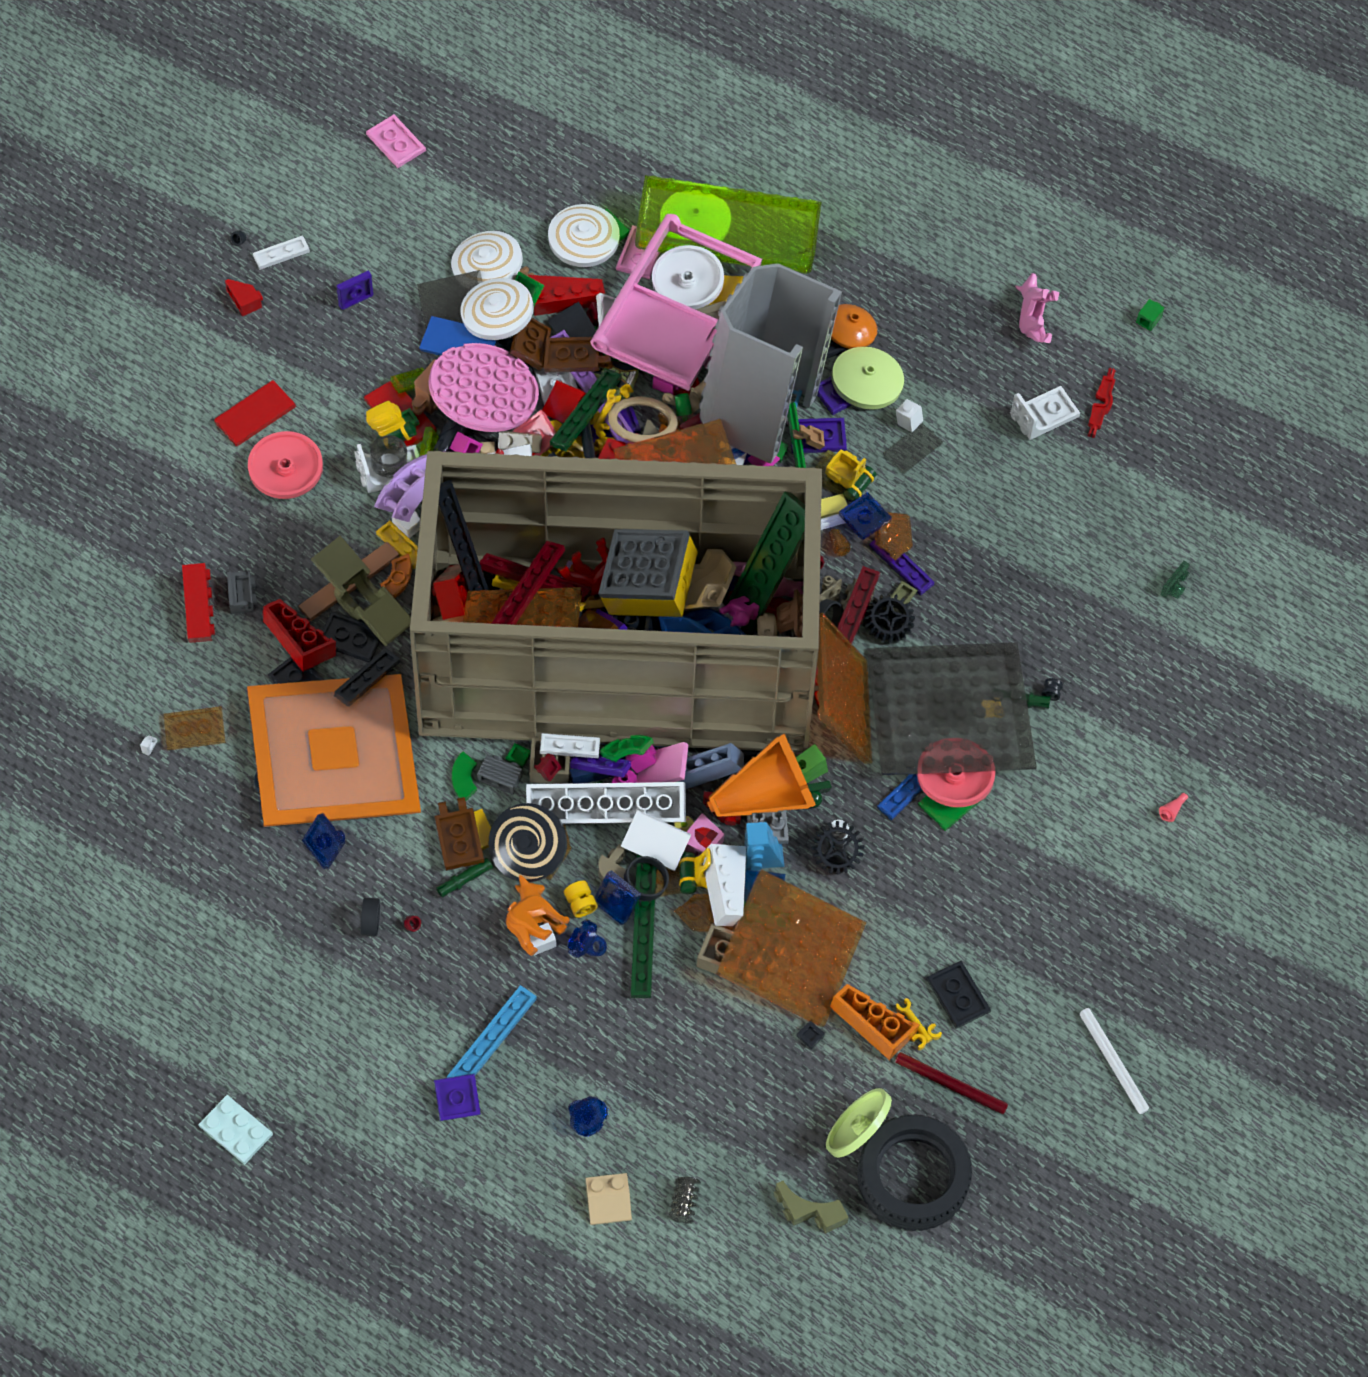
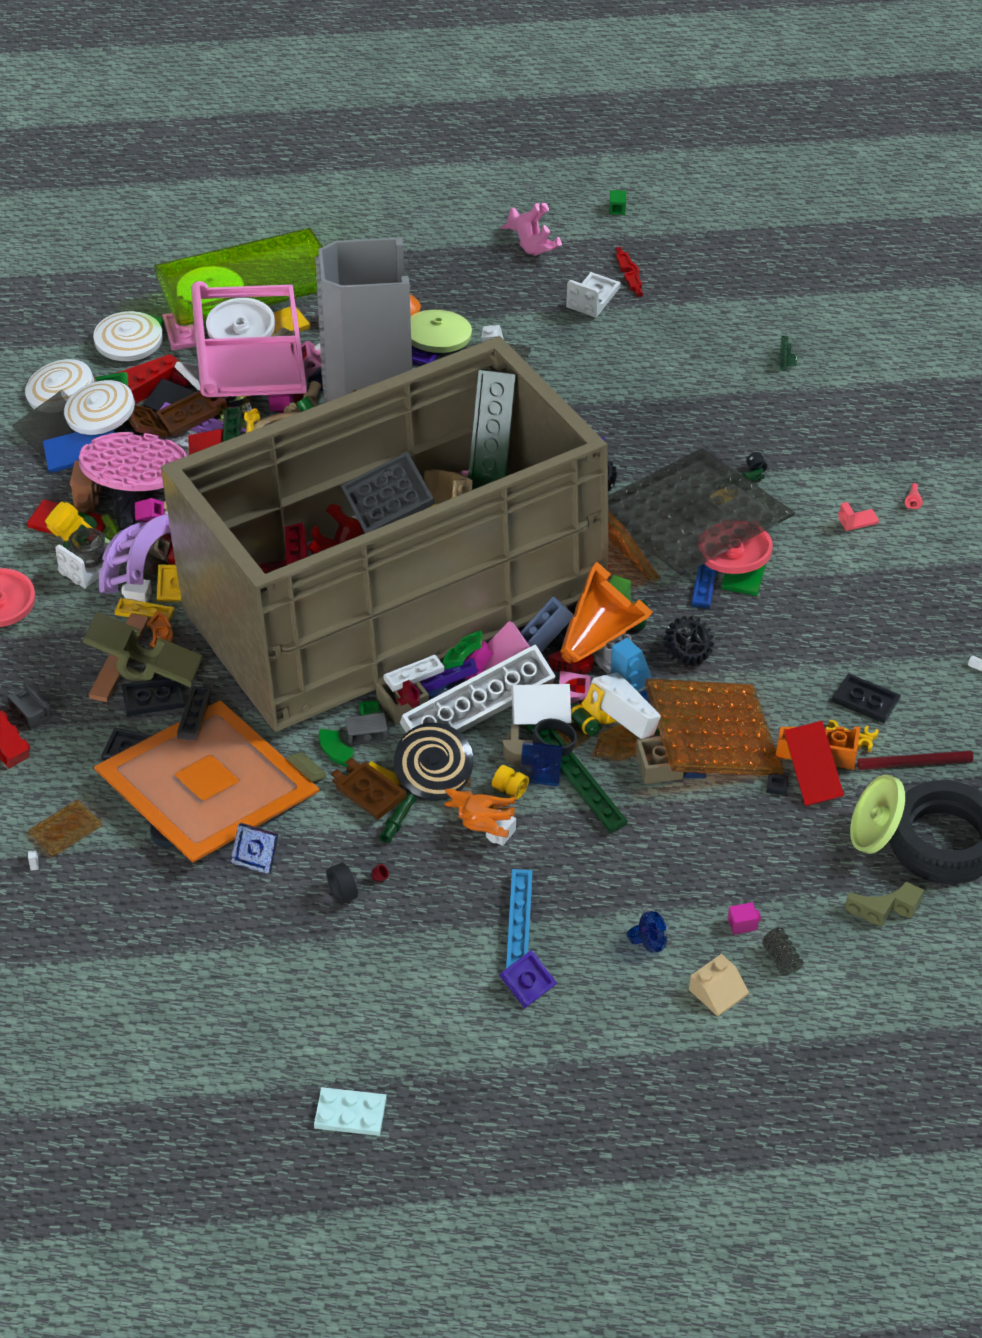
camera: 30 degrees left, 15 degrees down
(299, 638) = (108, 711): red wedge -> none
(405, 381) = (57, 494): clear neon green plate -> none
(425, 783) = (307, 766): none -> olive tile
(583, 938) = (539, 807): clear blue tile -> none
(678, 1148) = (743, 918): none -> dark pink brick
(848, 1037) = (813, 763): none -> red tile
(1098, 802) = (856, 520): none -> coral bracket

